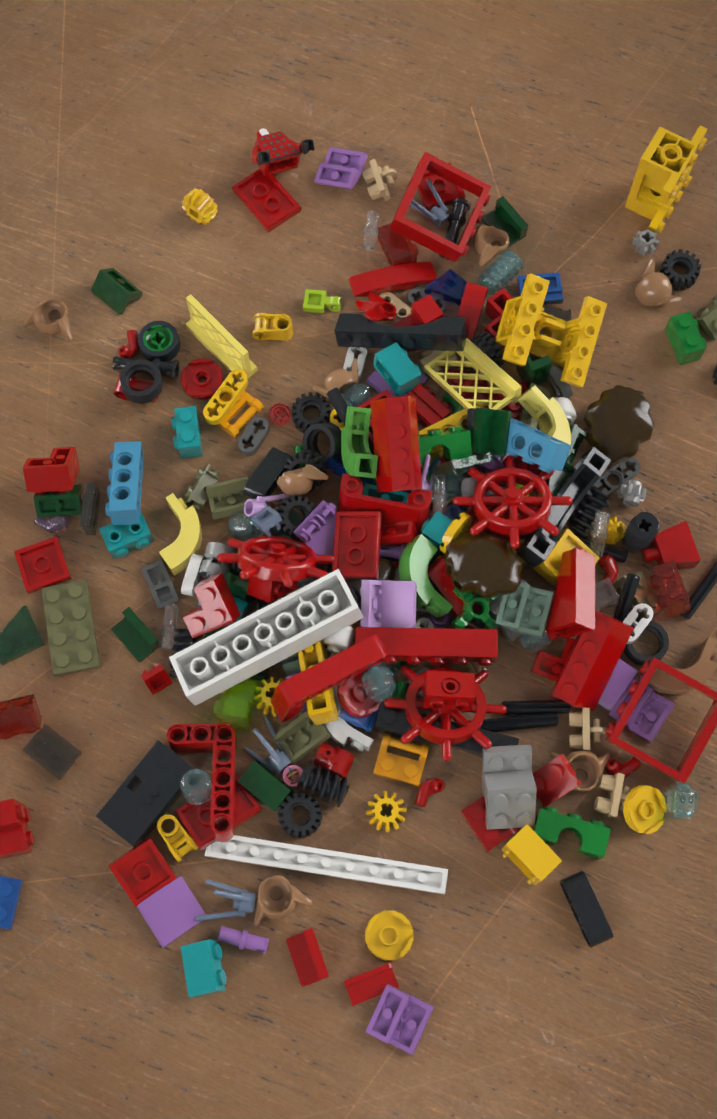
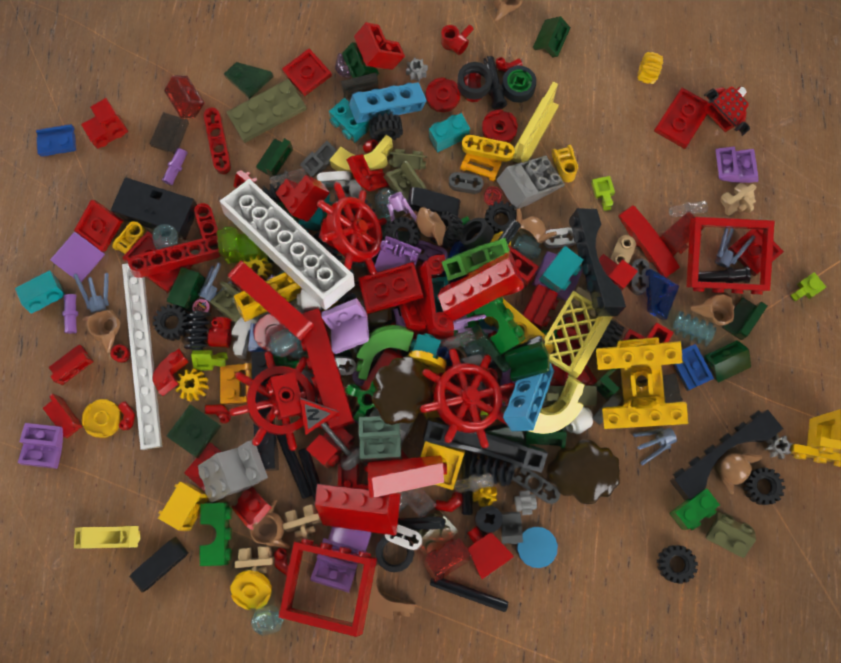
camera: 75 degrees right, 5 degrees up
(79, 385) = (459, 42): none -> red piece
(86, 695) = (217, 140): none -> red beam
(94, 435) = (416, 69): none -> light grey gear
(99, 757) = (174, 166): none -> medium lavender pin
(136, 424) = (442, 95): none -> red tile
(155, 496) = (385, 125): none -> black tyre
(168, 523) = (369, 146): none -> red hinge
(210, 533) = (365, 178): none -> red plate
(267, 519) = (387, 211): sand blue tile -> none
(280, 370) = (529, 181): none -> light grey slope
(320, 897) = (124, 358): none -> red bush
(321, 494) = (430, 250): none -> medium lavender plate
(361, 785) = (206, 360): none -> lime plate
(361, 839) = (164, 373): none -> red plate
(377, 308) = (612, 236): red plate -> none
(398, 901) = (128, 418): none -> red arm
(441, 825) = (193, 431): none -> clear green plate
(472, 306) = (642, 313): red beam -> none
(481, 663) = (316, 415): none -> dark grey piece
(493, 155) = (809, 286): none -> lime plate
(512, 672) = (326, 449): none -> red brick
(538, 957) = (106, 537): none -> light yellow arch
(543, 253) = (729, 360): none -> dark green panel
(607, 342) = (664, 437): none -> sand blue plant
(654, 328) = (695, 477): none -> black arch
(663, 512) = (512, 528): none -> dark grey bracket
(679, 499) = (538, 547): none -> dark azure tile

